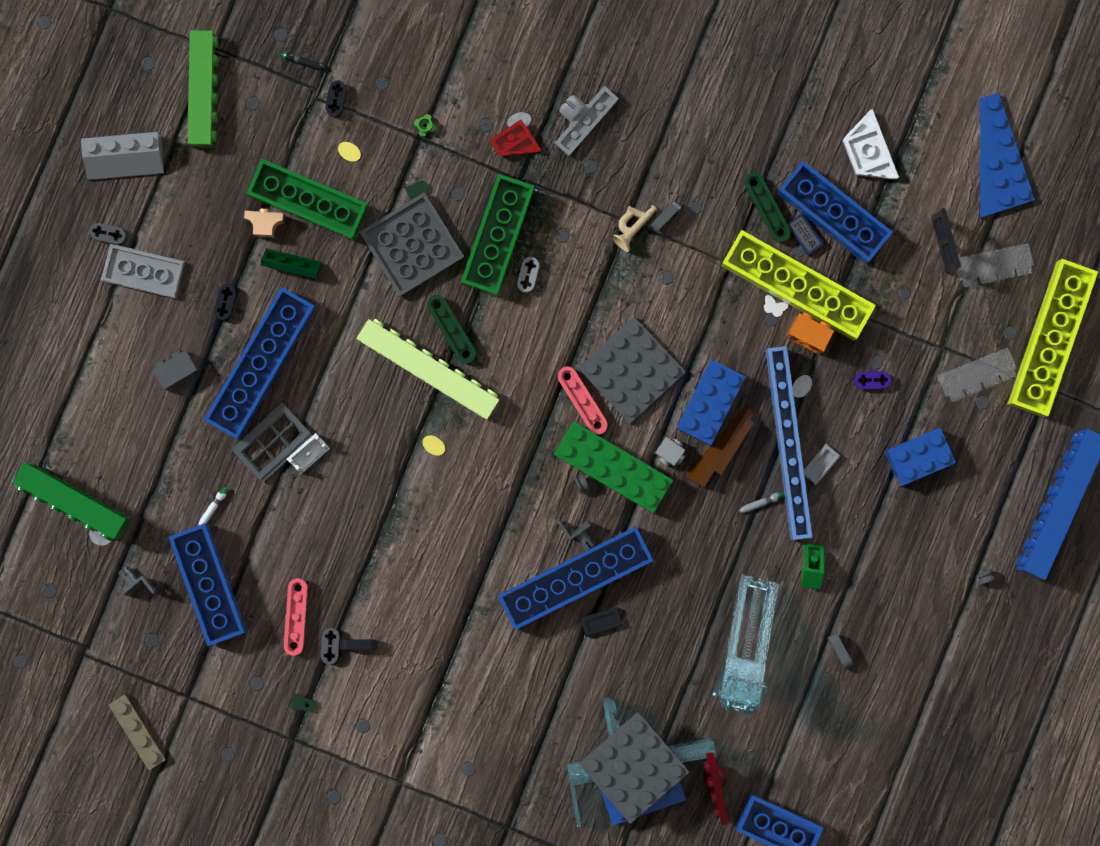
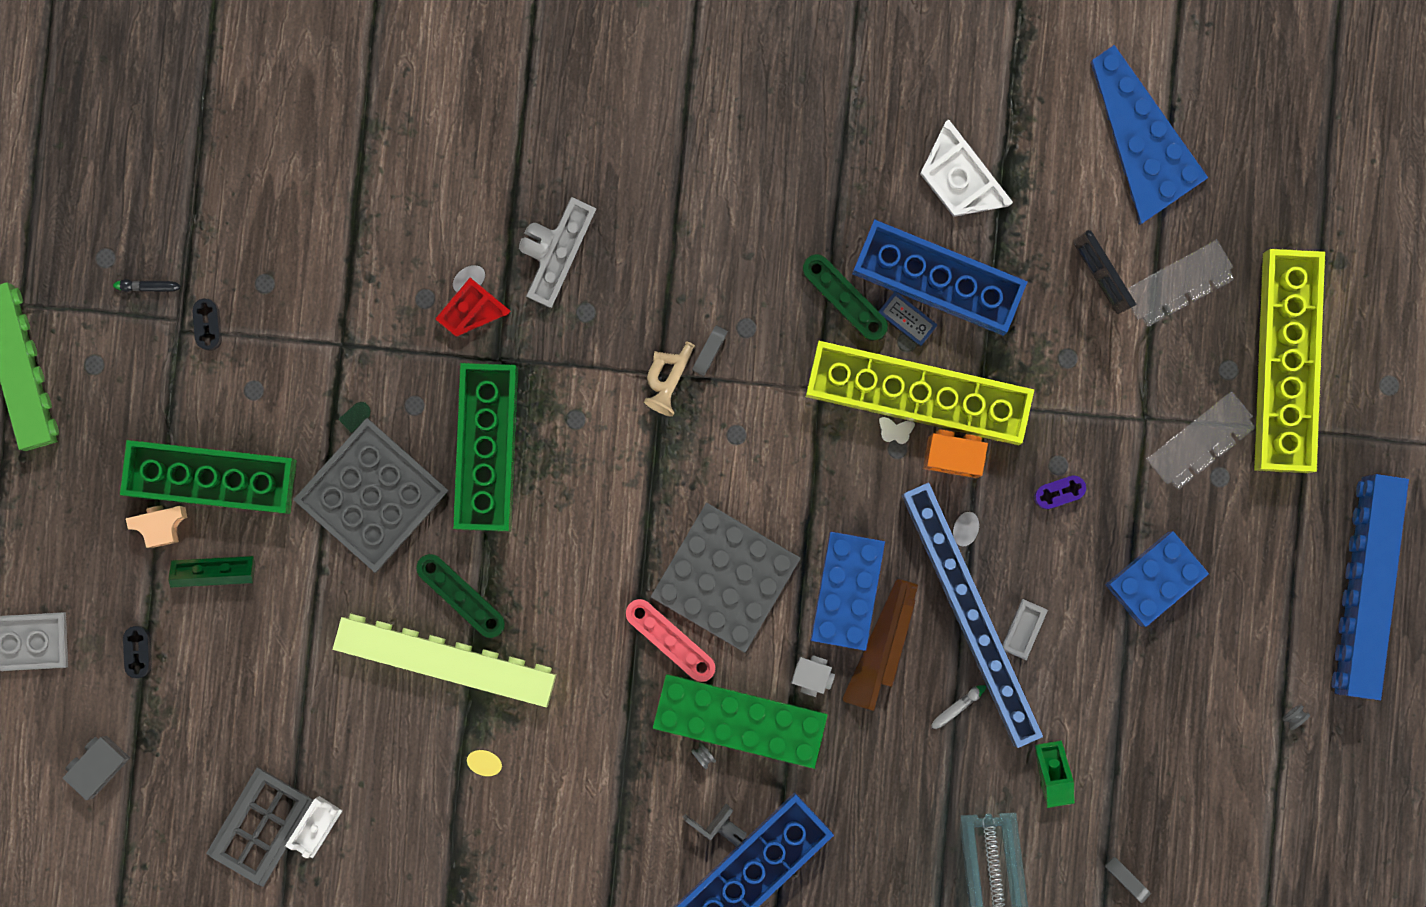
camera: 15 degrees left, 0 degrees up
(260, 363) = (209, 724): blue brick -> none
(349, 151) = (247, 391): light yellow sticker -> none
(425, 120) = (348, 324): bright green plate -> none
(532, 276) = (536, 485): light grey beam -> none

